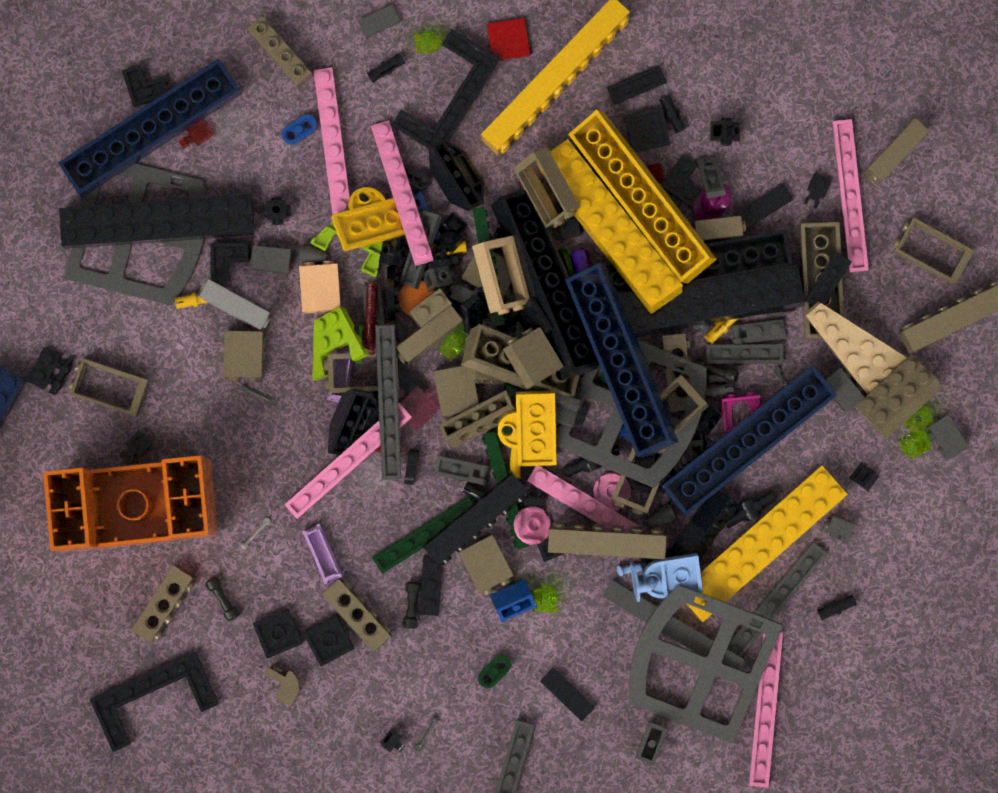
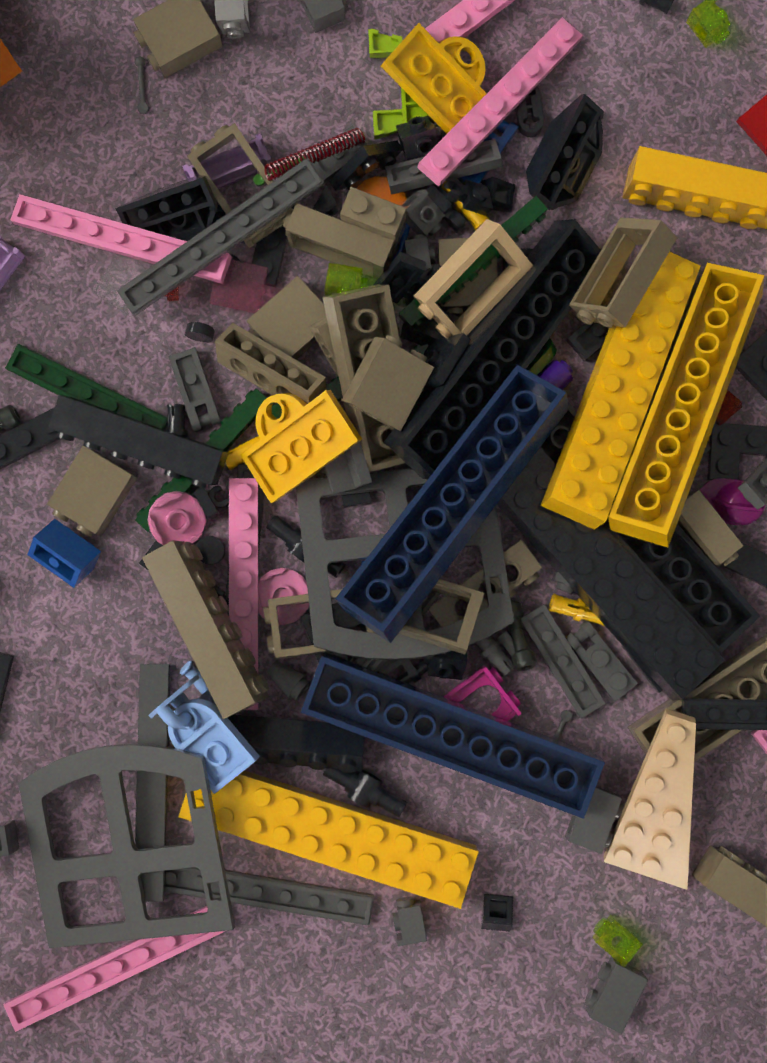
camera: 60 degrees right, 0 degrees up
(311, 254) = (354, 40): dark grey cone -> none
(320, 287) = (319, 75): light nougat brick -> none
(331, 334) = (268, 125): lime wing -> none
(411, 466) = (162, 323): black beam -> none
(429, 448) = (199, 332): none -> black tile
(483, 66) = (726, 108): black plate -> none
(545, 599) = (91, 594): clear neon green brick -> none
(560, 515) = (211, 549): none -> black tile
(837, 607) = (305, 980): black pin -> none
(898, 397) = (630, 899): dark tan brick -> none
(922, 444) = (581, 957): clear neon green brick -> none

